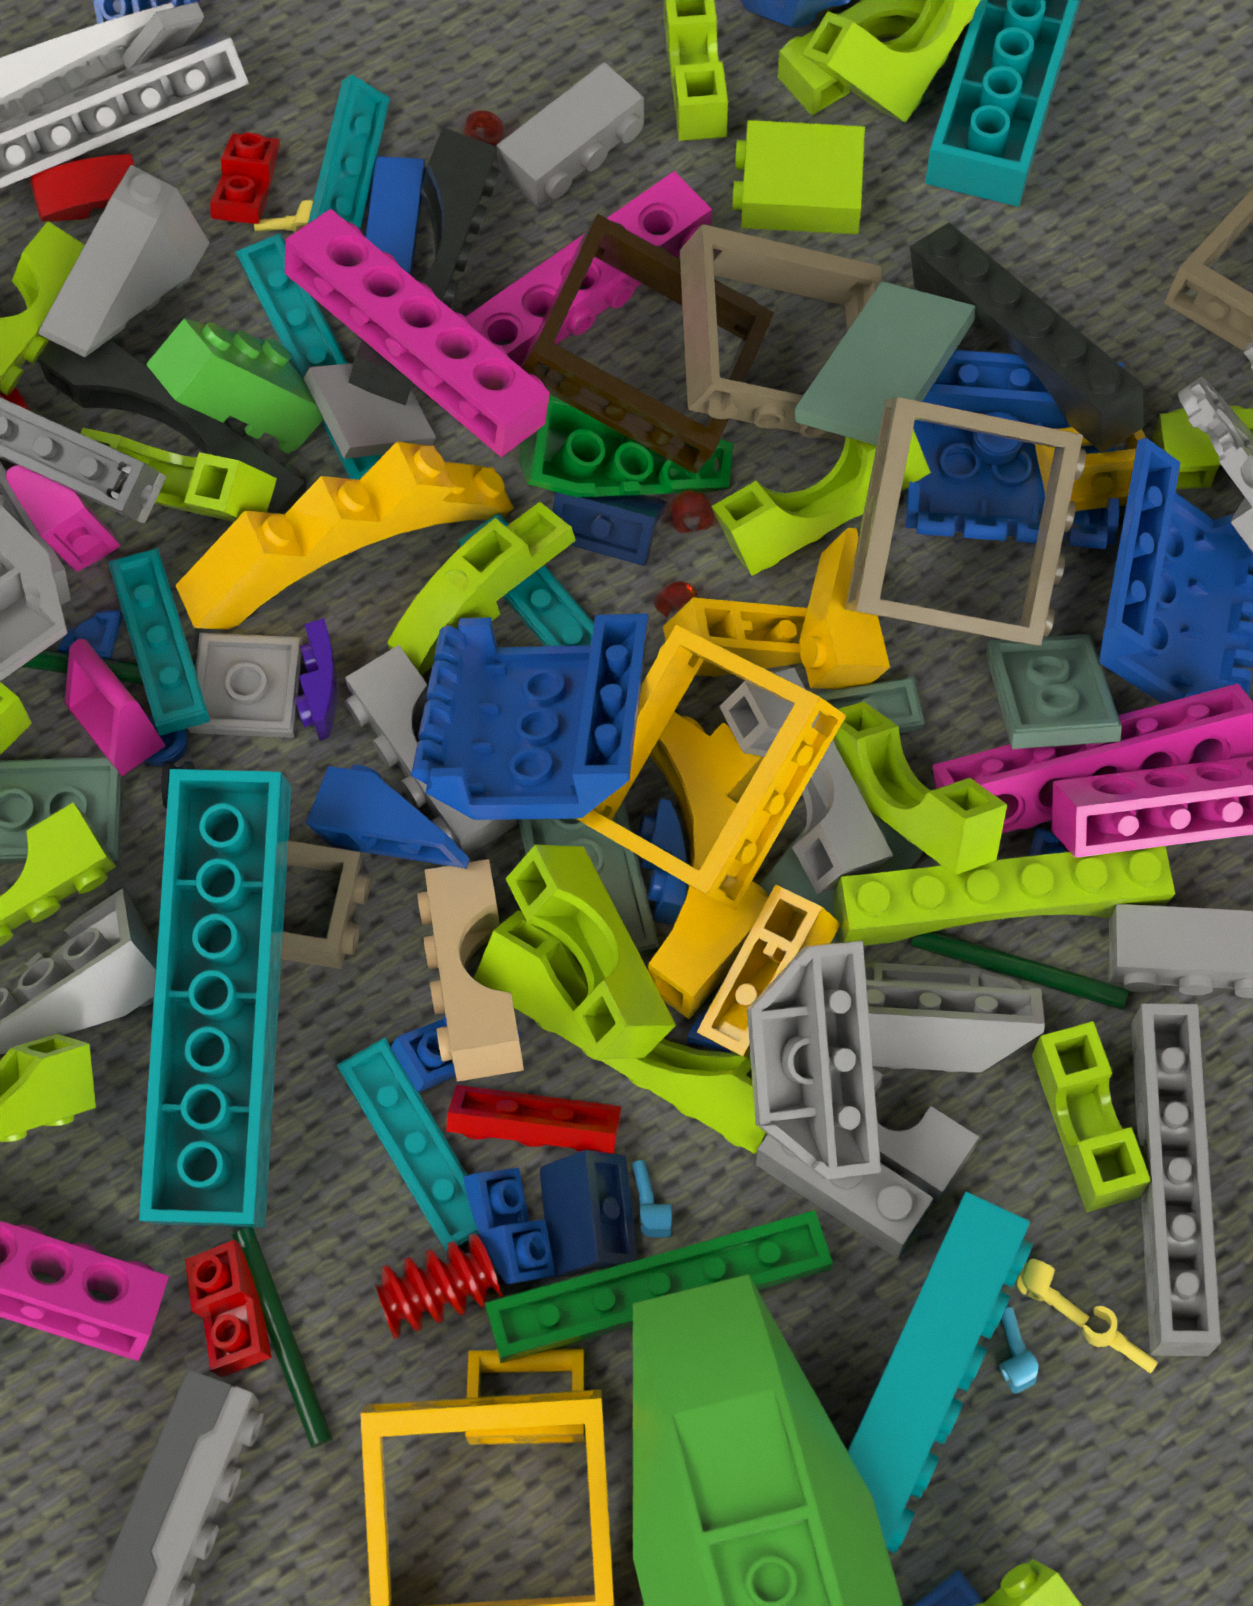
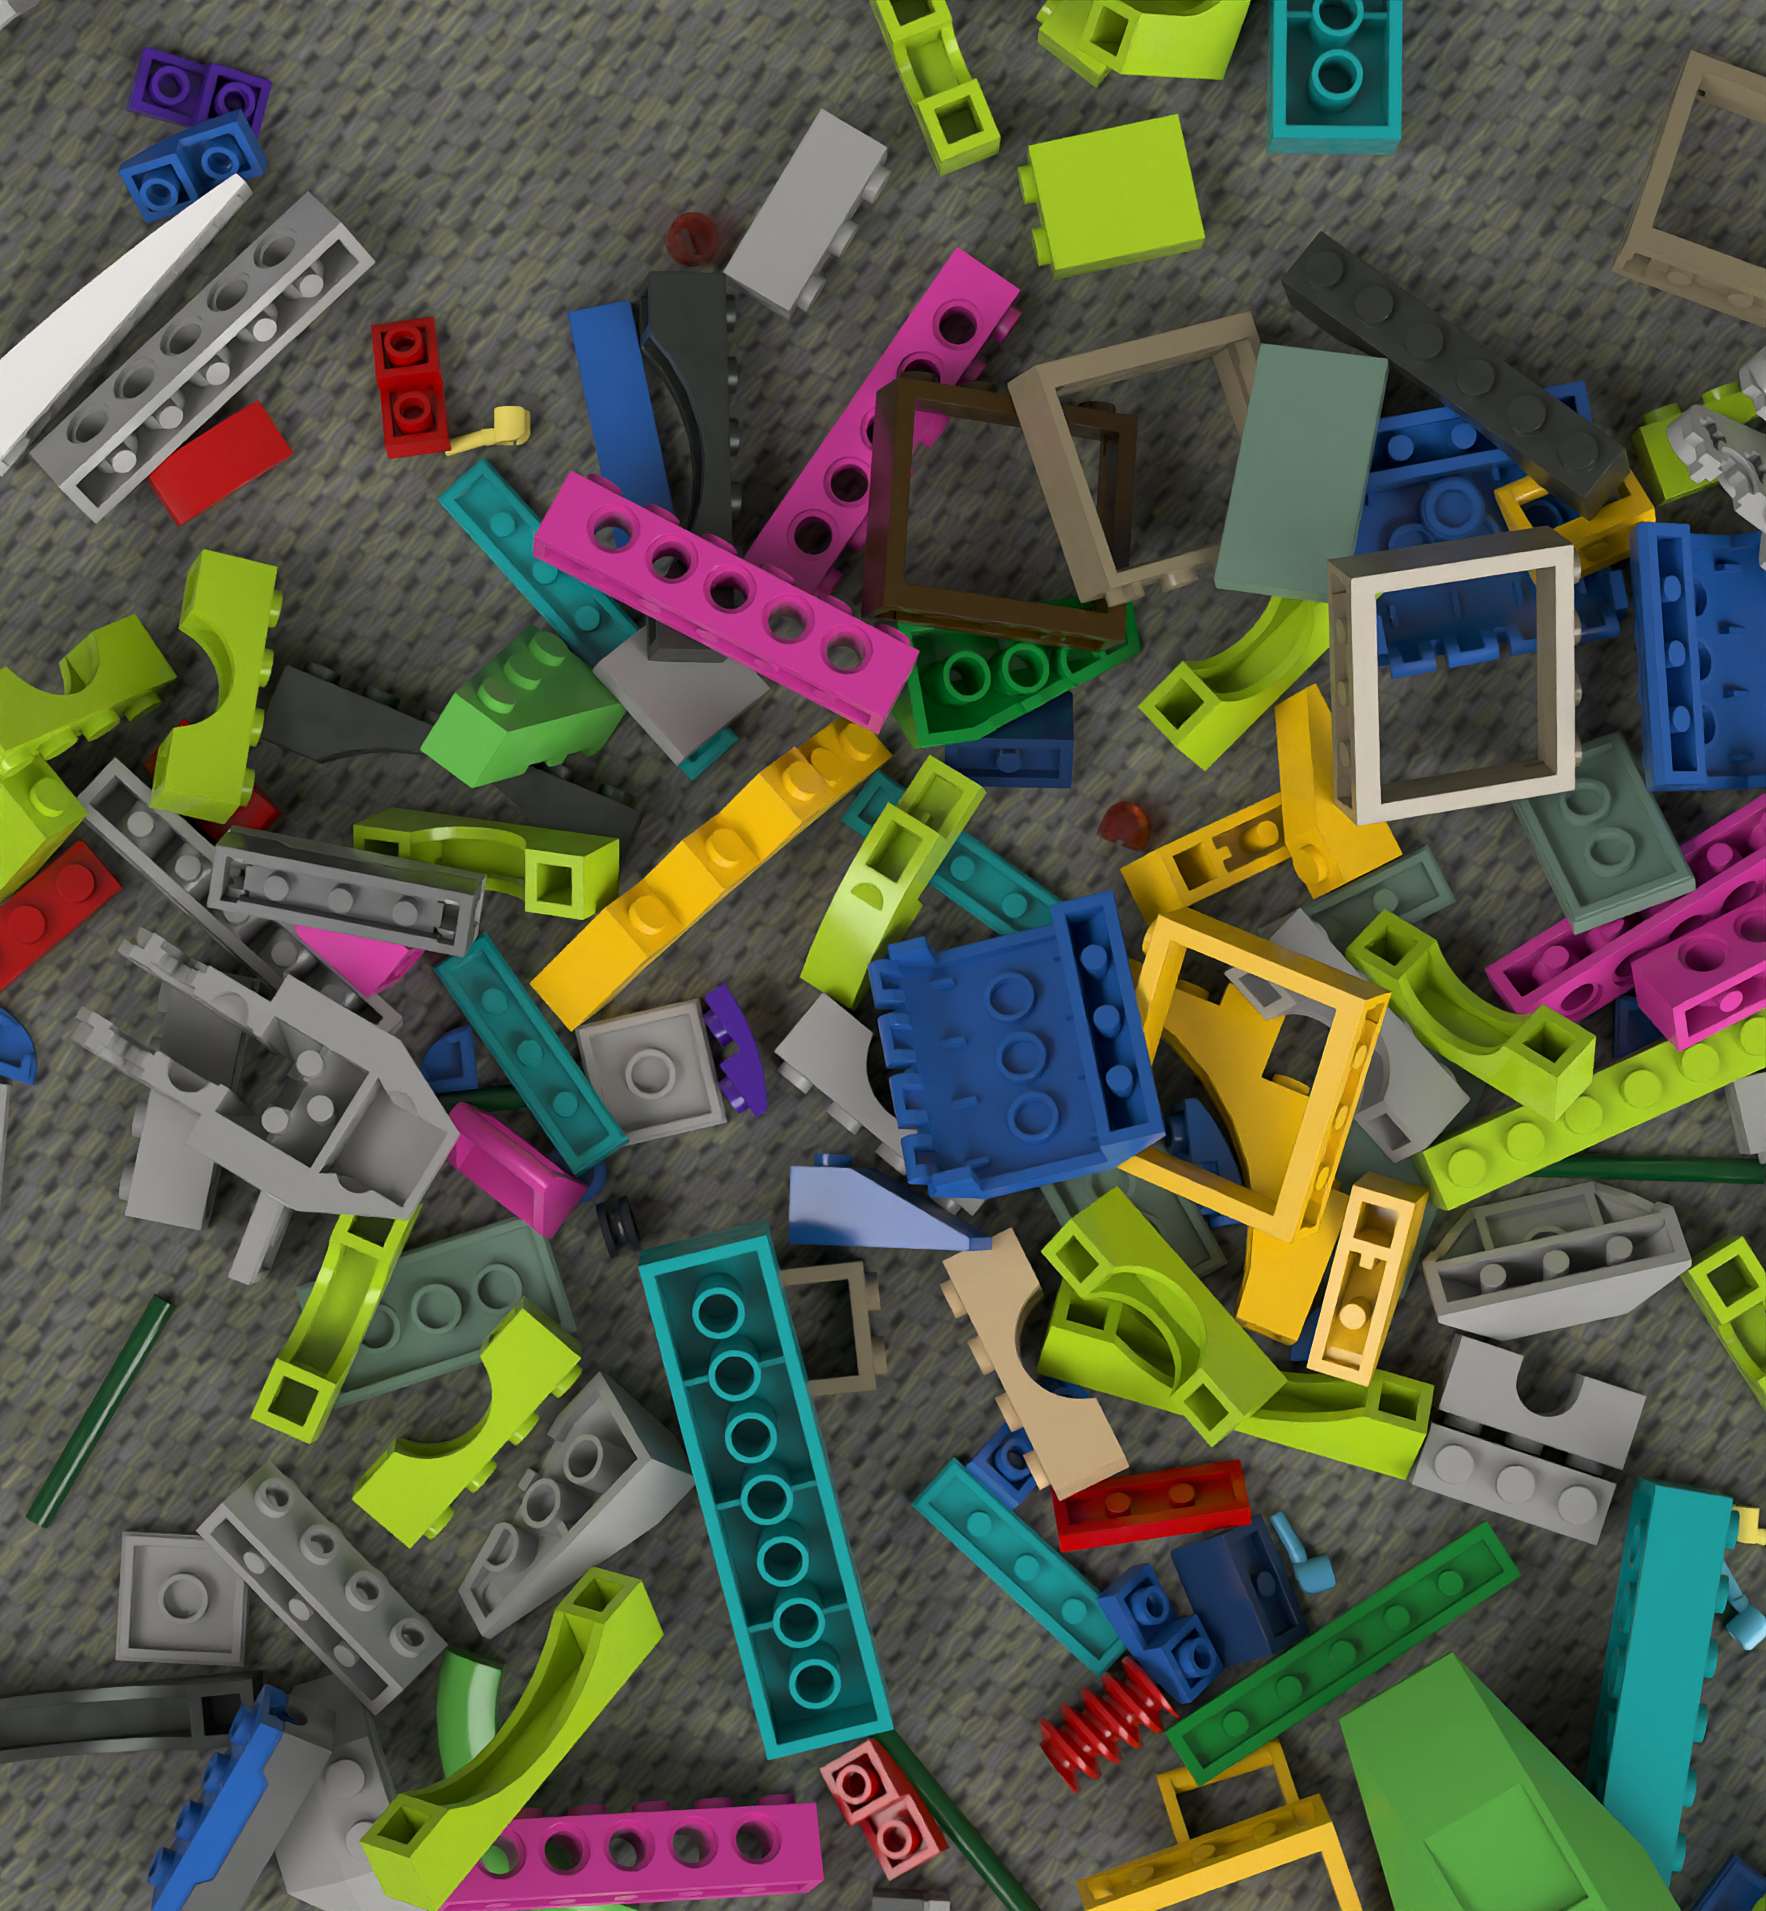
camera: 20 degrees left, 20 degrees up
(129, 262) = (322, 570): light grey wedge -> none
(163, 33) = (246, 232): light grey tile -> none
(351, 151) = (538, 343): teal tile -> none
(696, 505) = (1105, 696): clear red hinge -> none
(817, 1061) = (1462, 1395): light grey wedge -> none

